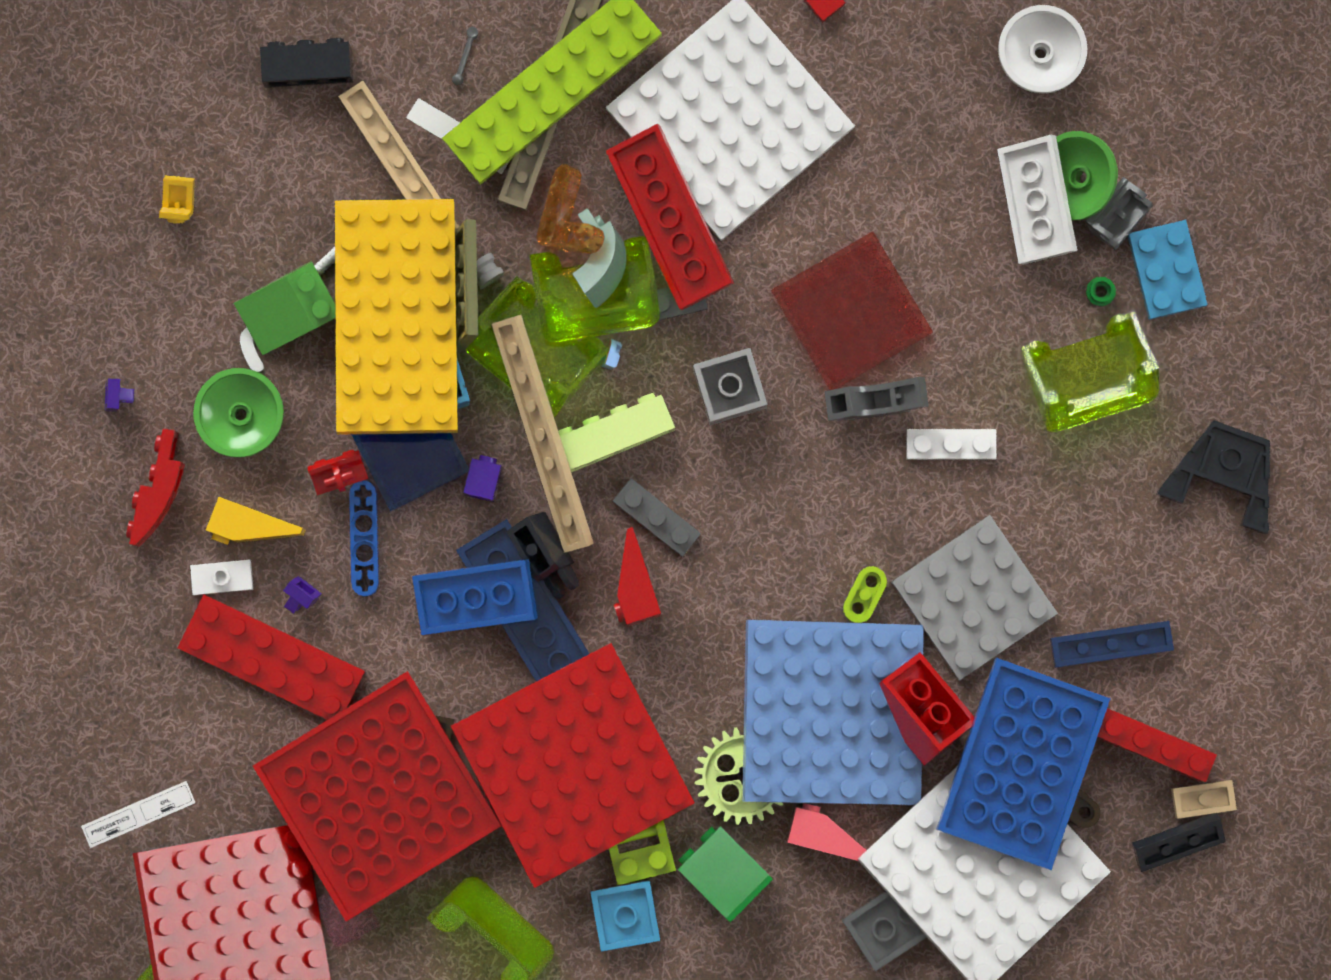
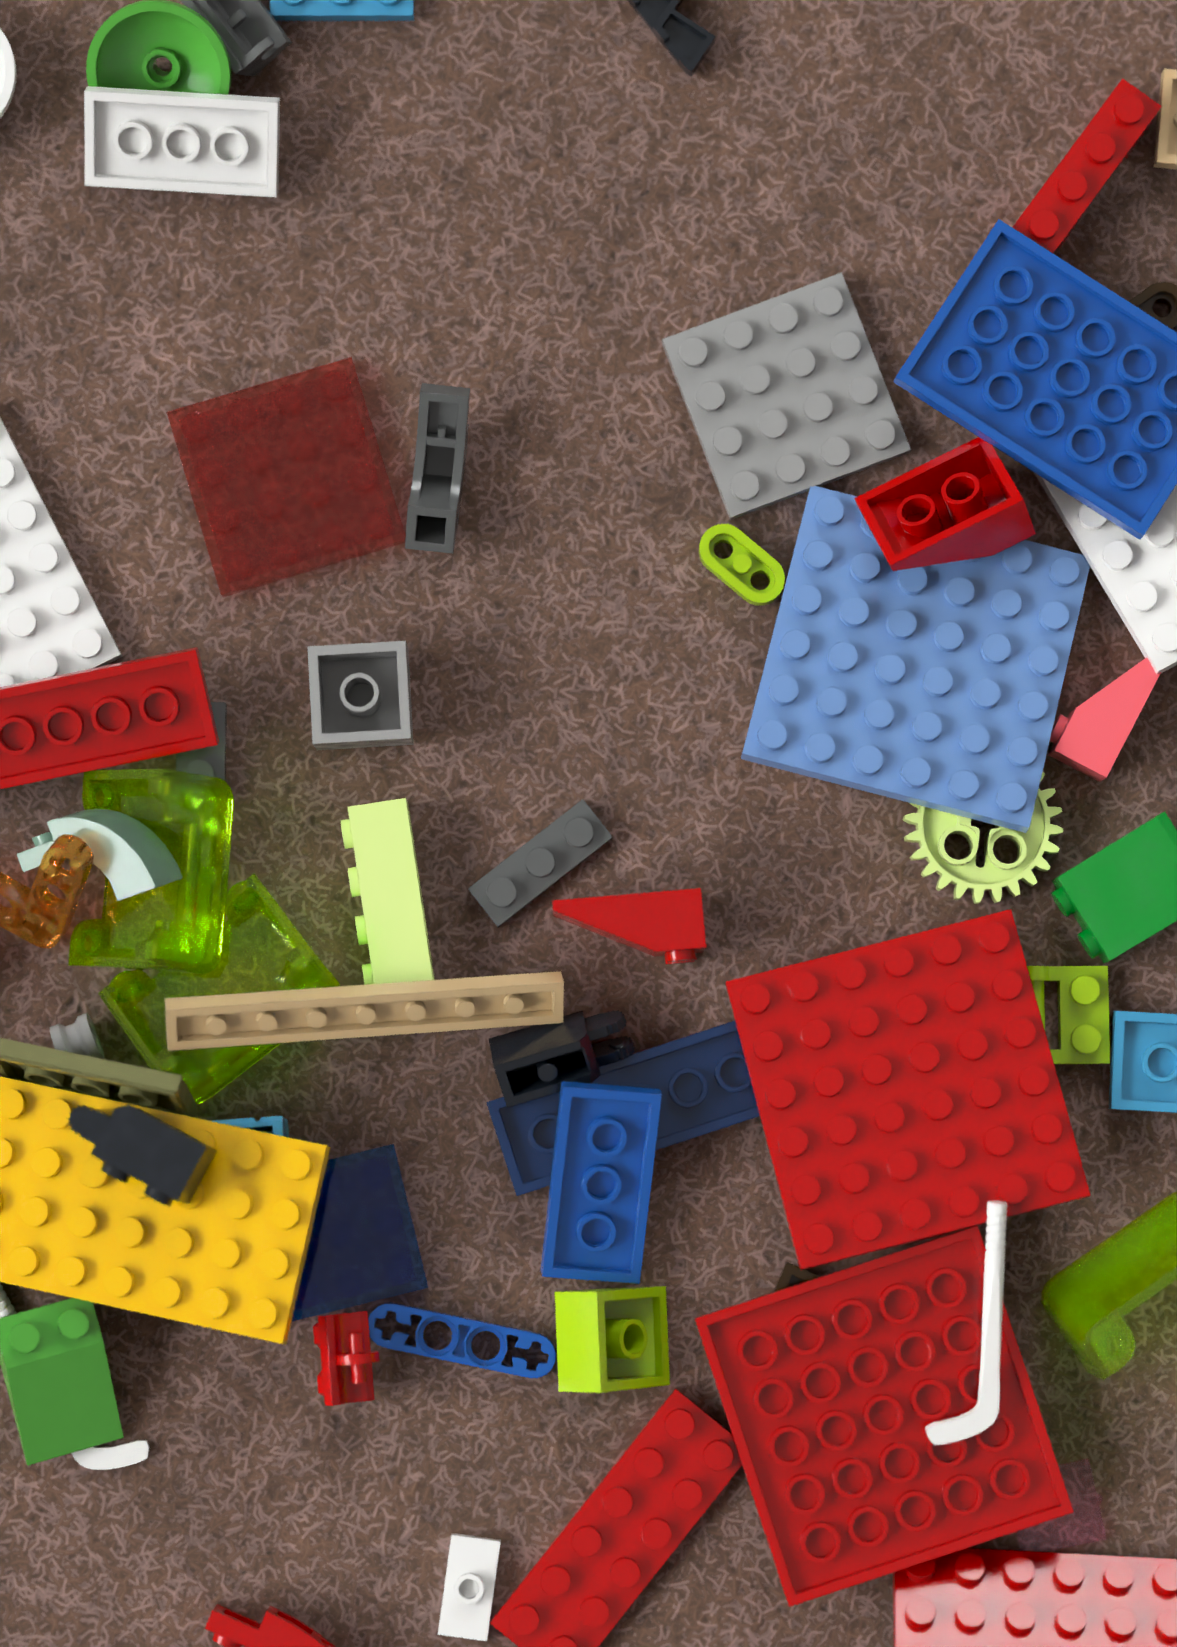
camera: 75 degrees left, 0 degrees up
(222, 399) = (181, 1521): bright green dish -> none
(244, 524) = (391, 1533): yellow slope -> none
(300, 594) = (528, 1463): dark purple tile -> none
(385, 626) = (612, 1339): none -> lime slope
(393, 855) = (987, 1406): none -> white piece
(430, 325) = (146, 1149): none -> black hinge
(483, 478) = (411, 1125): dark purple brick -> none
(612, 357) = (268, 872): light blue tile -> none
(951, 444) = (535, 372): white plate -> none
(1093, 375) = (479, 123): clear neon green windscreen -> none
(1103, 282) = (344, 69): green plate -> none
(1111, 644) = (909, 201): dark blue plate -> none

